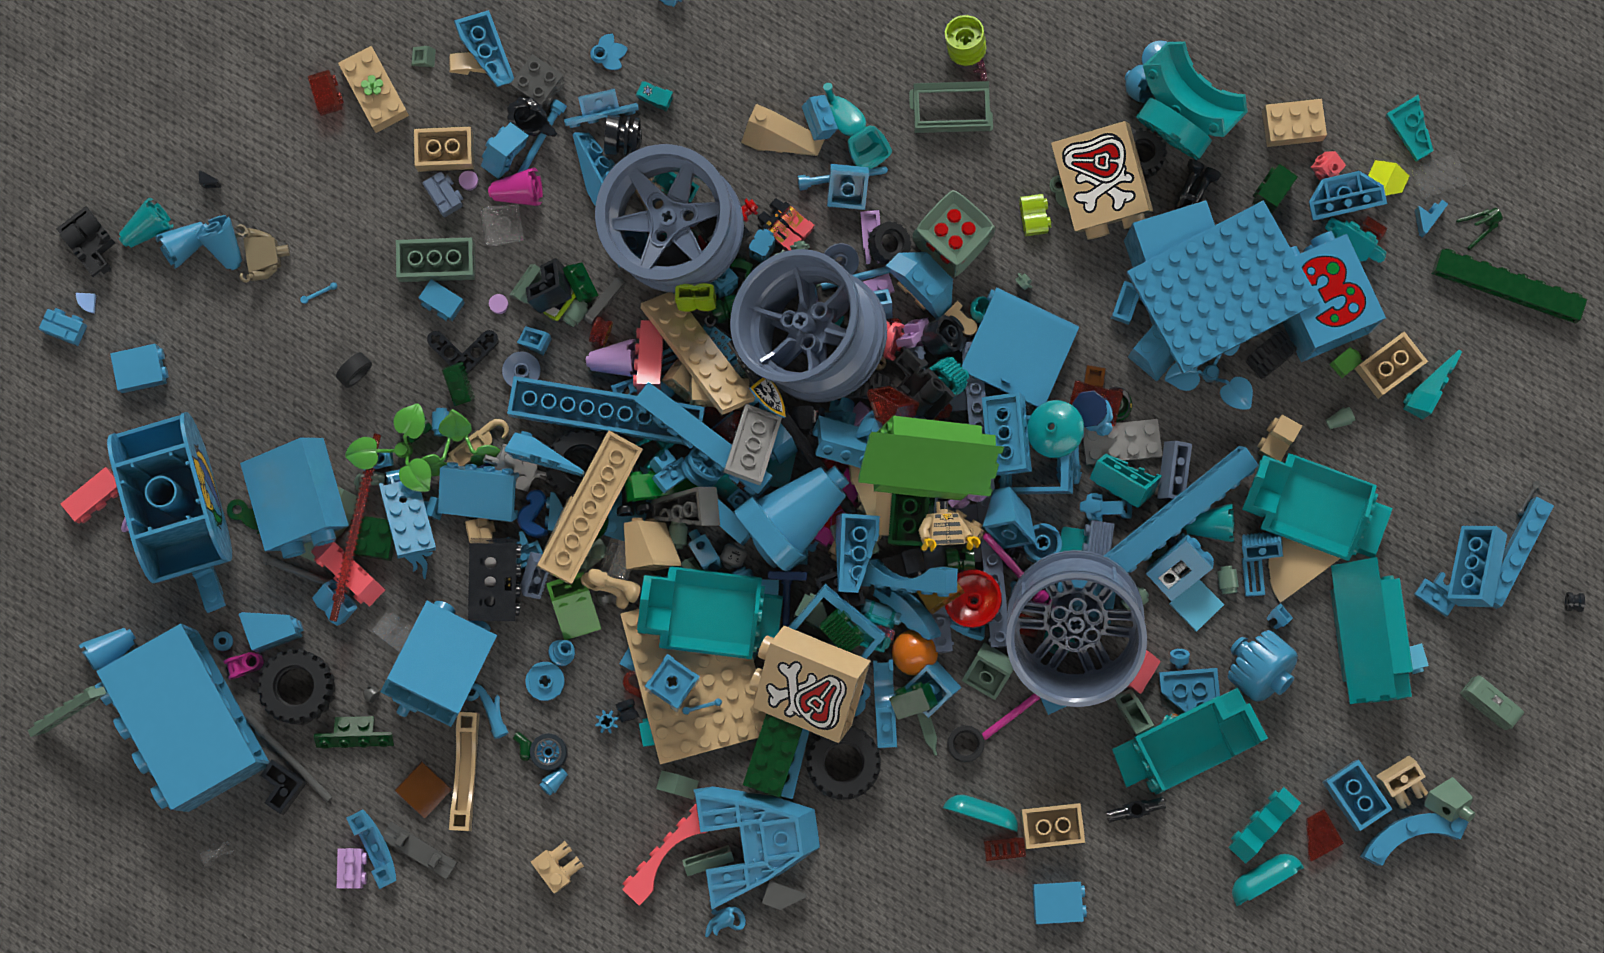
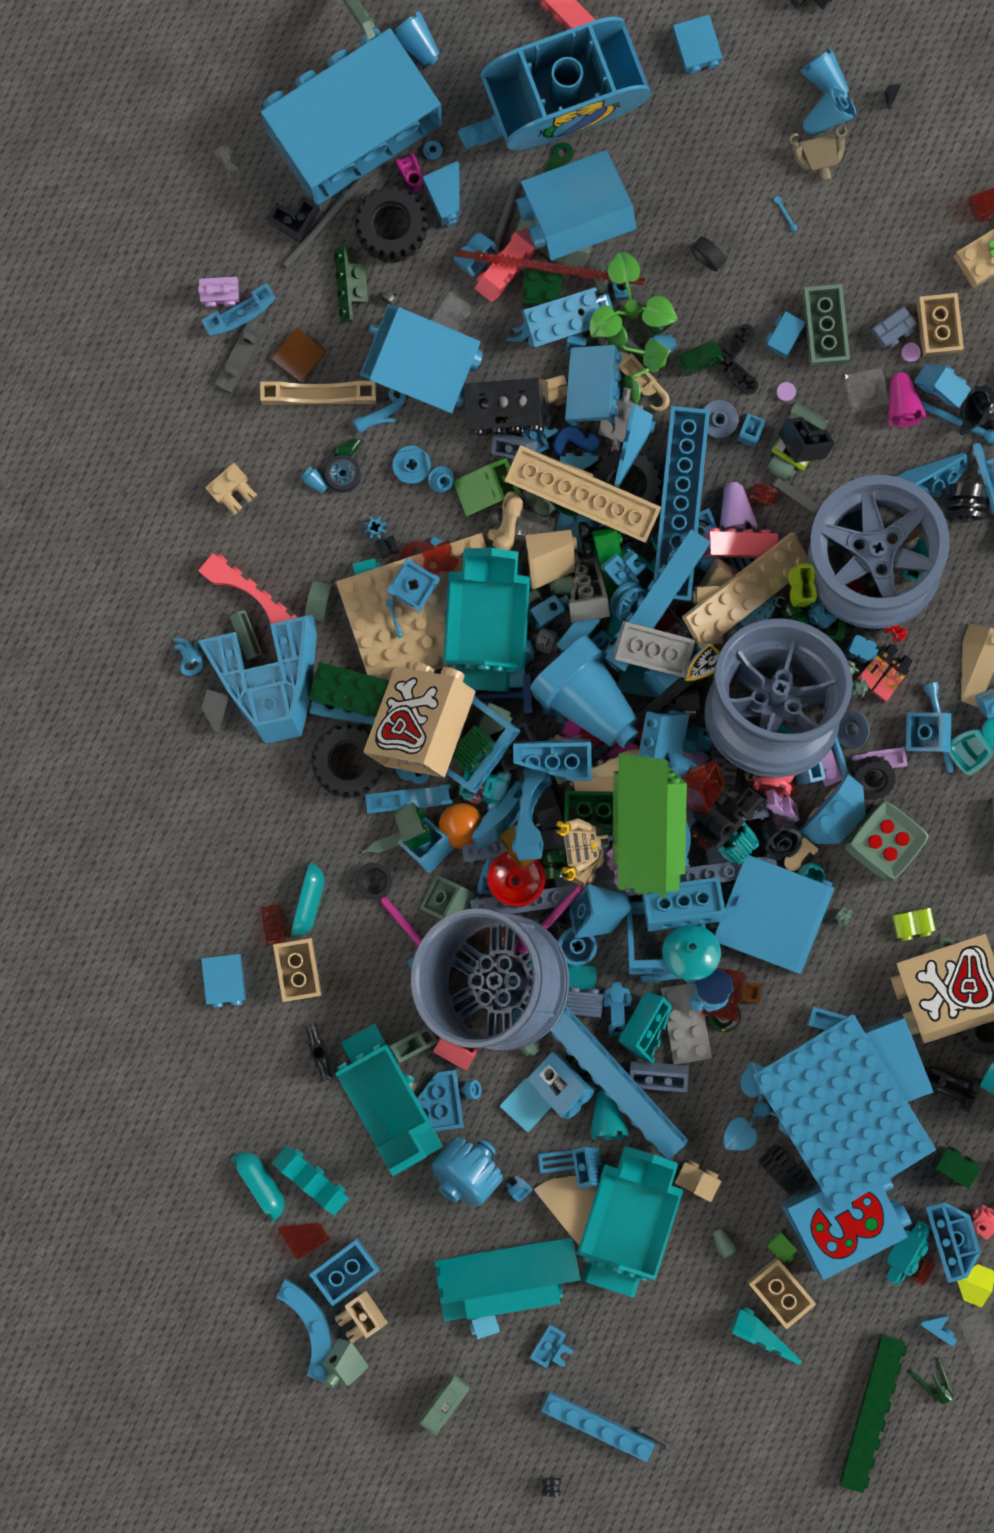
camera: 80 degrees right, 5 degrees up
(145, 224) = (843, 37): teal cone -> none
(580, 282) = (811, 471): dark green bracket -> none
(641, 656) = (440, 555): none -> clear red plate
(1152, 354) = (774, 1046): dark azure slope -> none
(1228, 580) = (552, 1135): sand green brick -> none
(1477, 566) = (580, 1385): dark azure brick -> none

